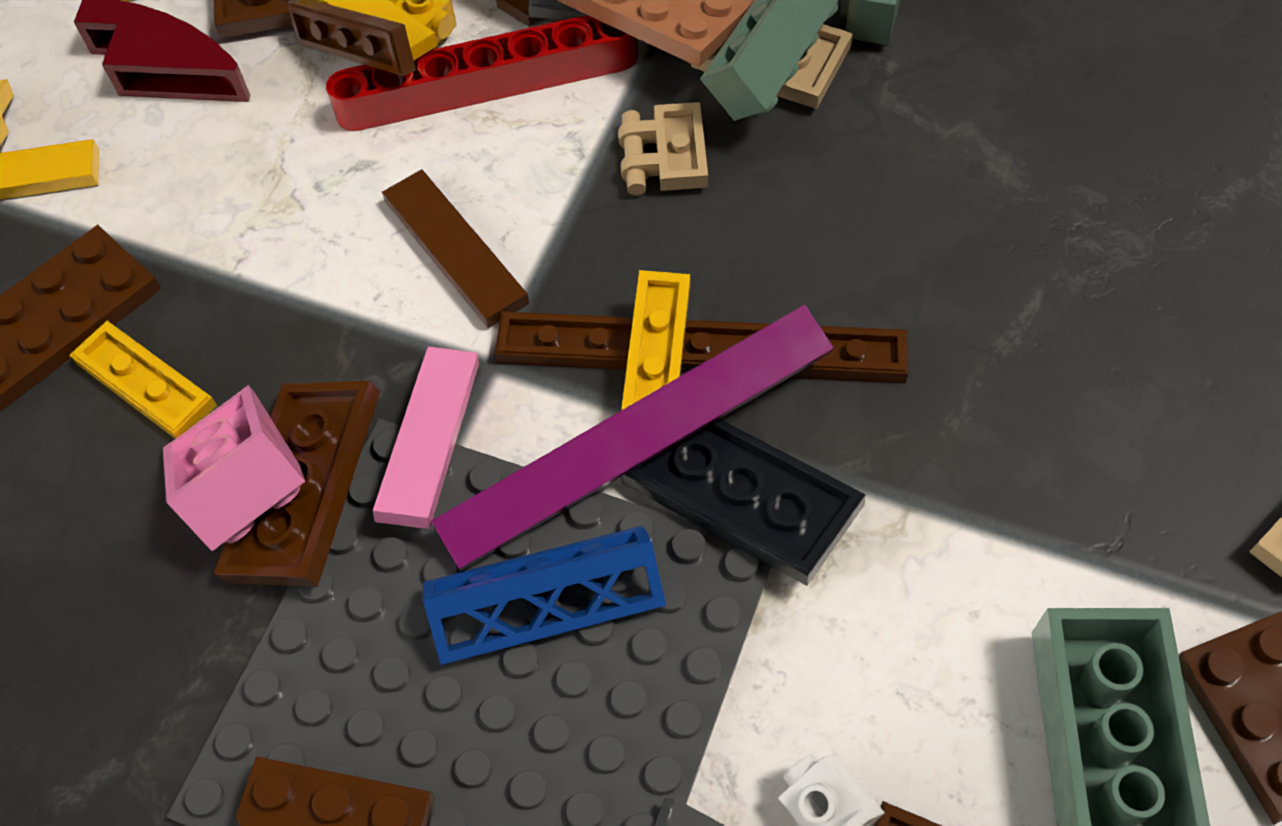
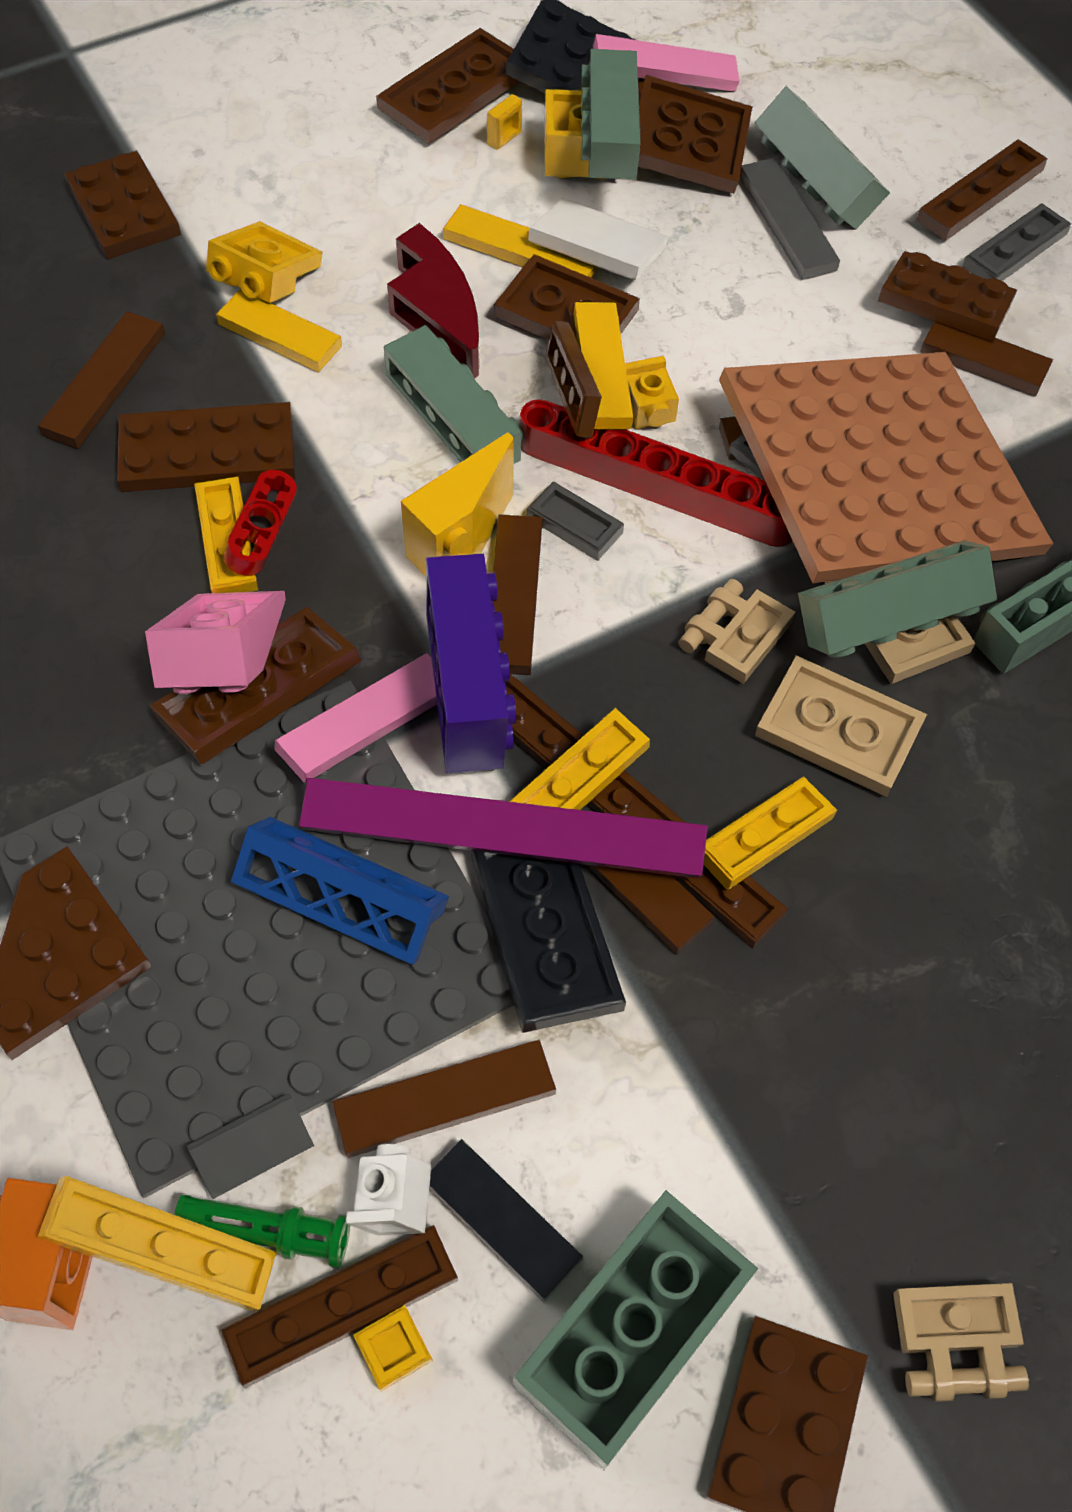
camera: 35 degrees right, 0 degrees up
(164, 359) = (262, 537): none -> red beam
(253, 128) = (447, 394): none -> sand green brick
(348, 215) = (460, 506): none -> yellow slope
(451, 154) = (576, 520): none -> dark grey tile
(484, 320) = (468, 663): none -> dark purple brick
(787, 696) = (443, 1098): none -> reddish brown tile
(806, 402) = (659, 904): none -> reddish brown tile
(813, 164) = (841, 725): none -> tan plate
(838, 281) = (766, 832): none -> yellow tile
(930, 748) = (503, 1220): none -> black tile

